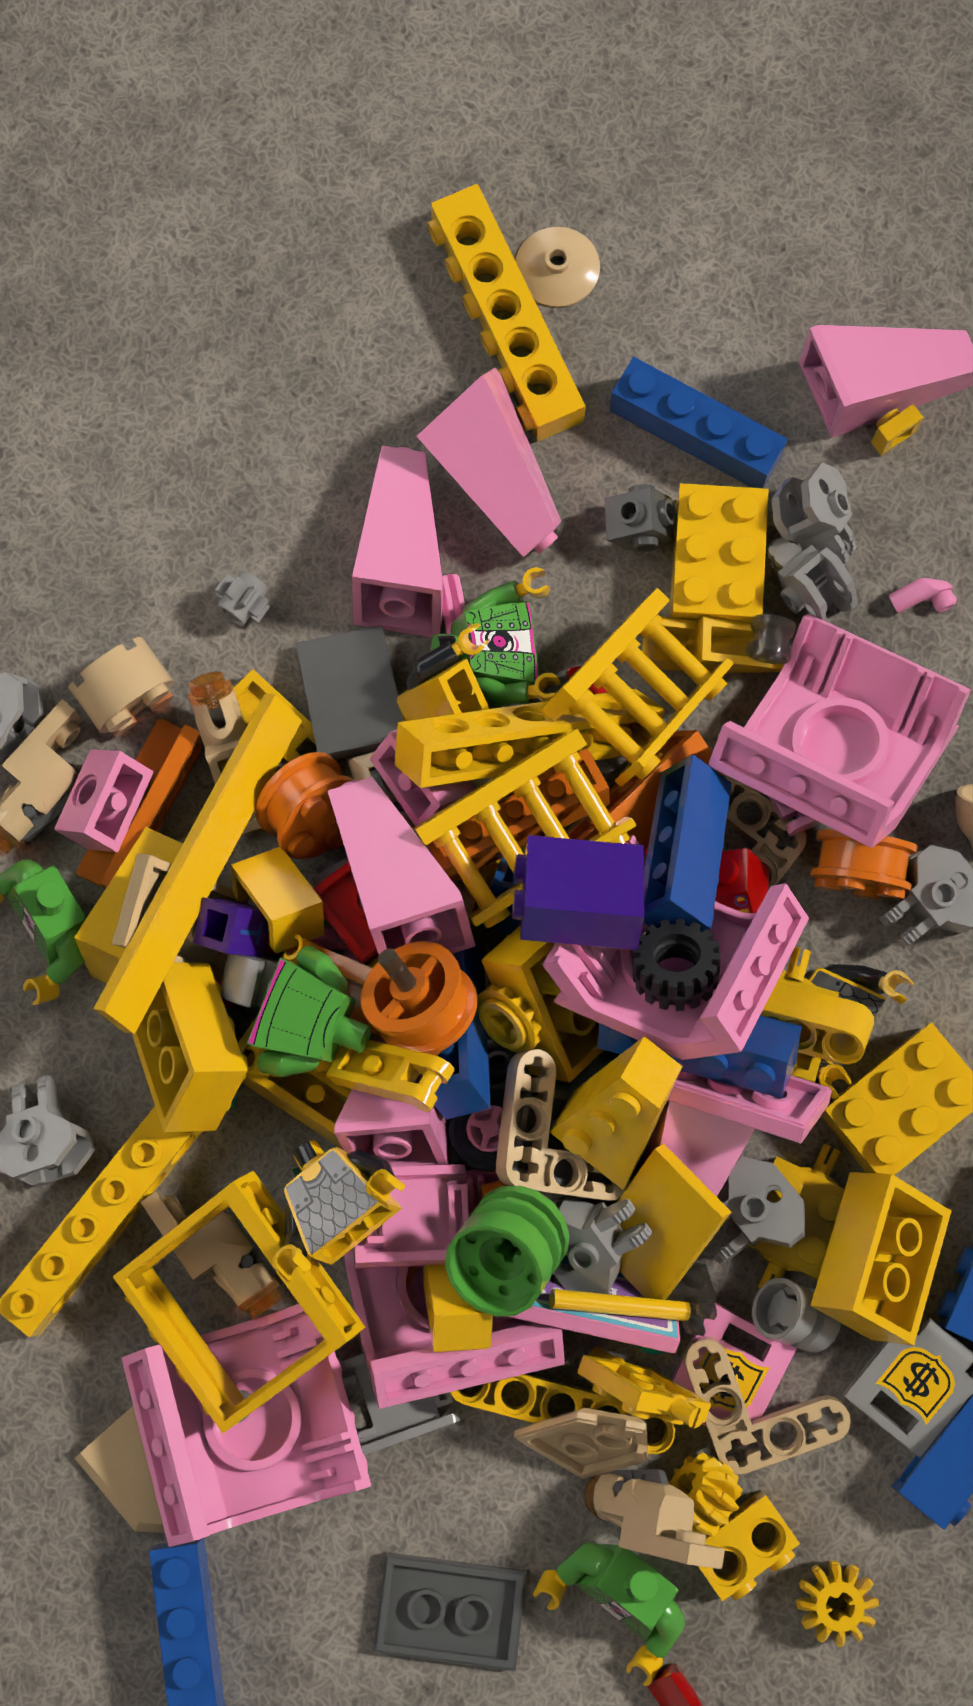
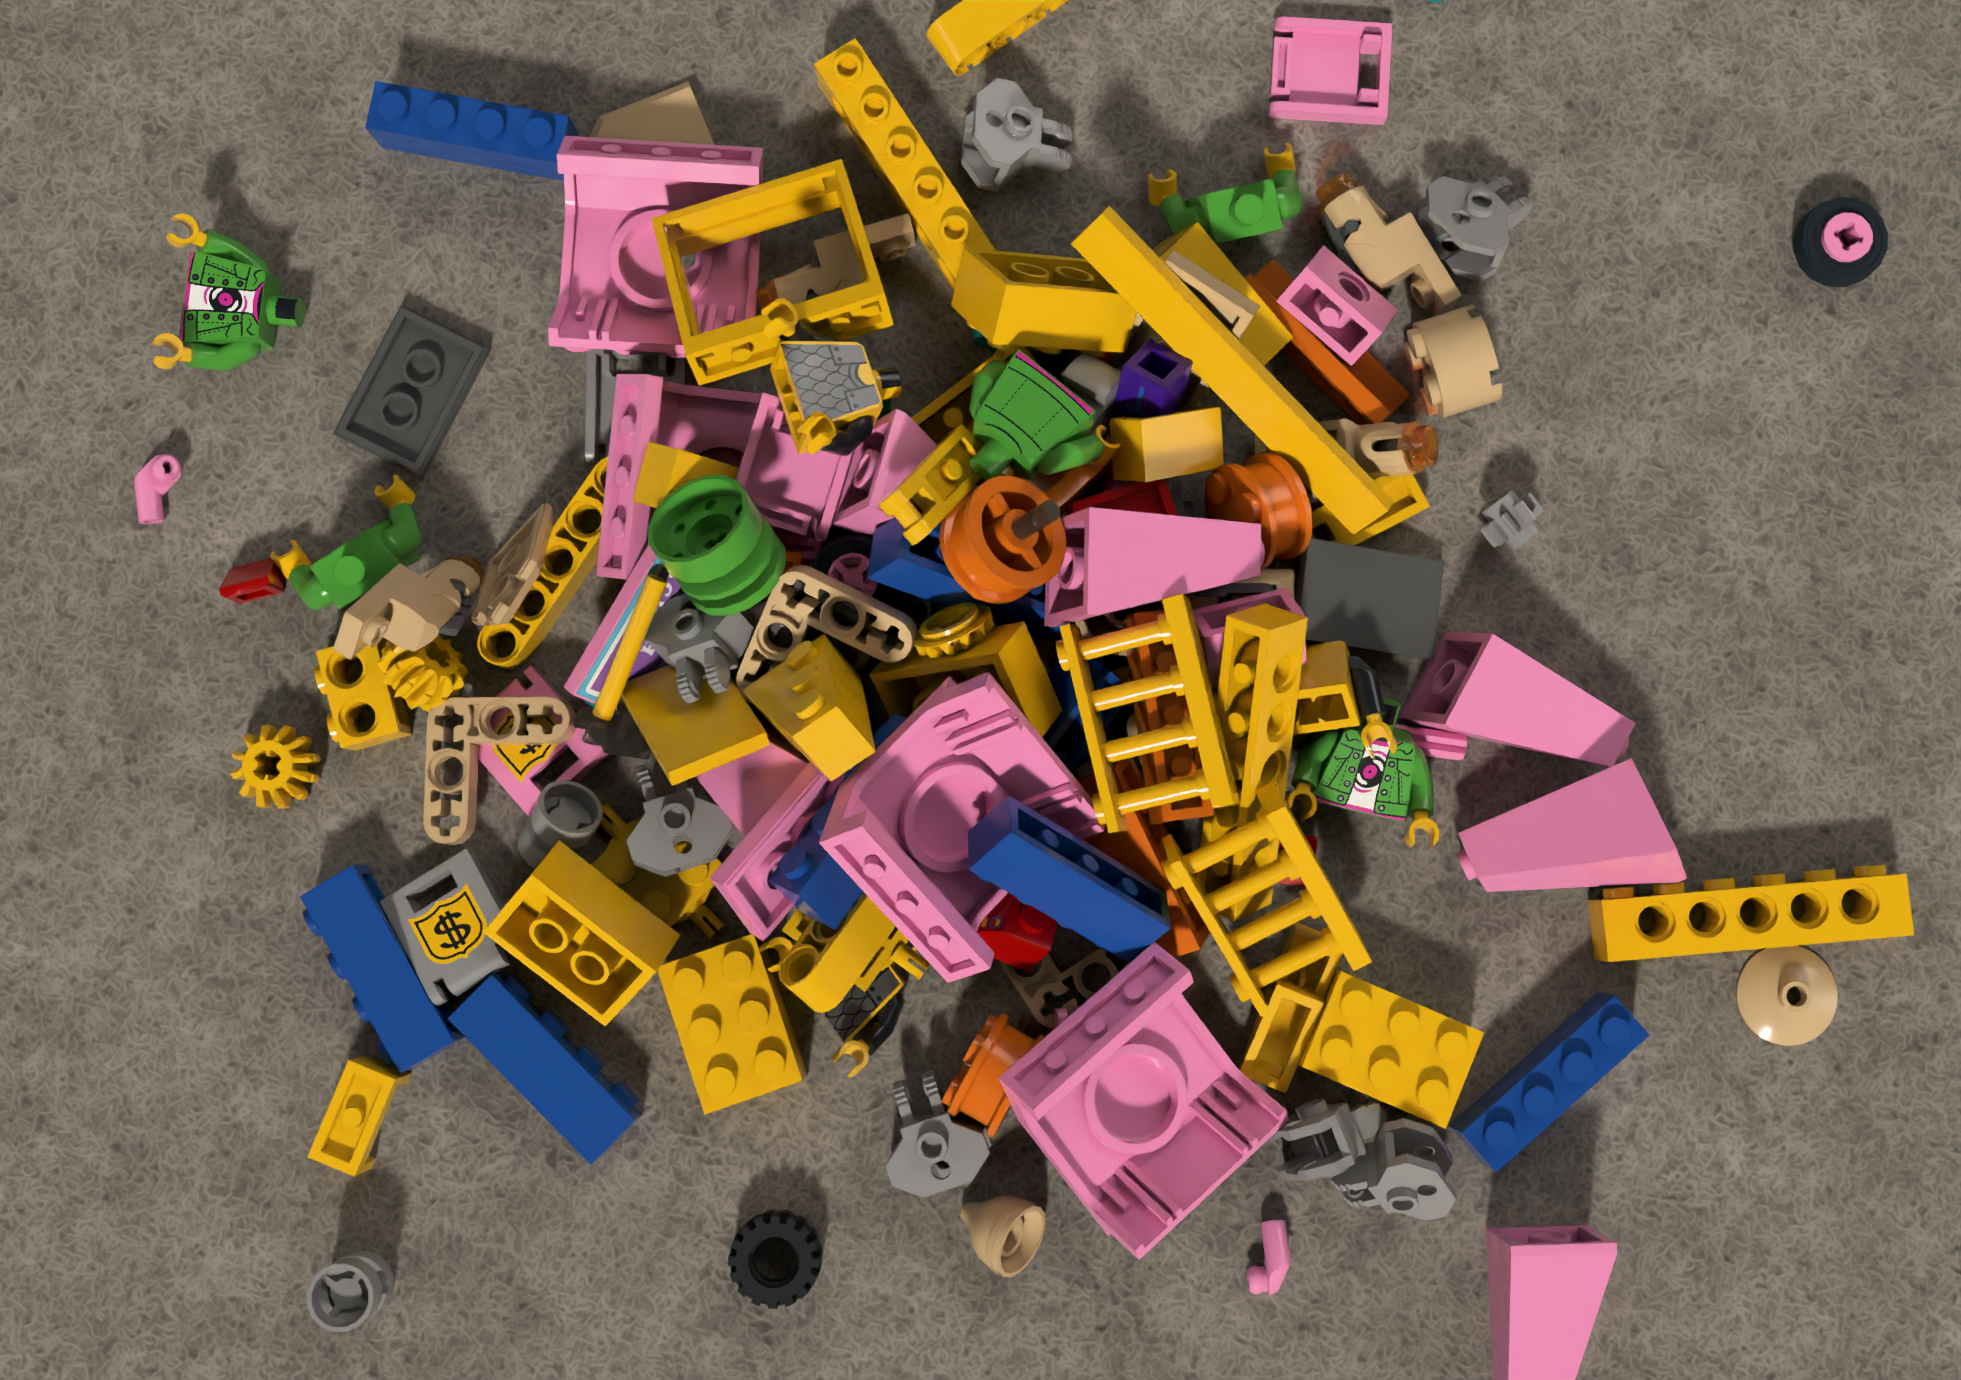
camera: 110 degrees right, 5 degrees up
(580, 892) = (1052, 739): dark purple brick -> none
(640, 518) = (1459, 976): dark grey brick -> none
(642, 1389) = (541, 644): yellow plate -> none
(676, 987) = (969, 822): black tyre -> none
(771, 639) = (1274, 1067): clear smoke wheel -> none
(896, 428) = (1472, 1302): yellow plate -> none

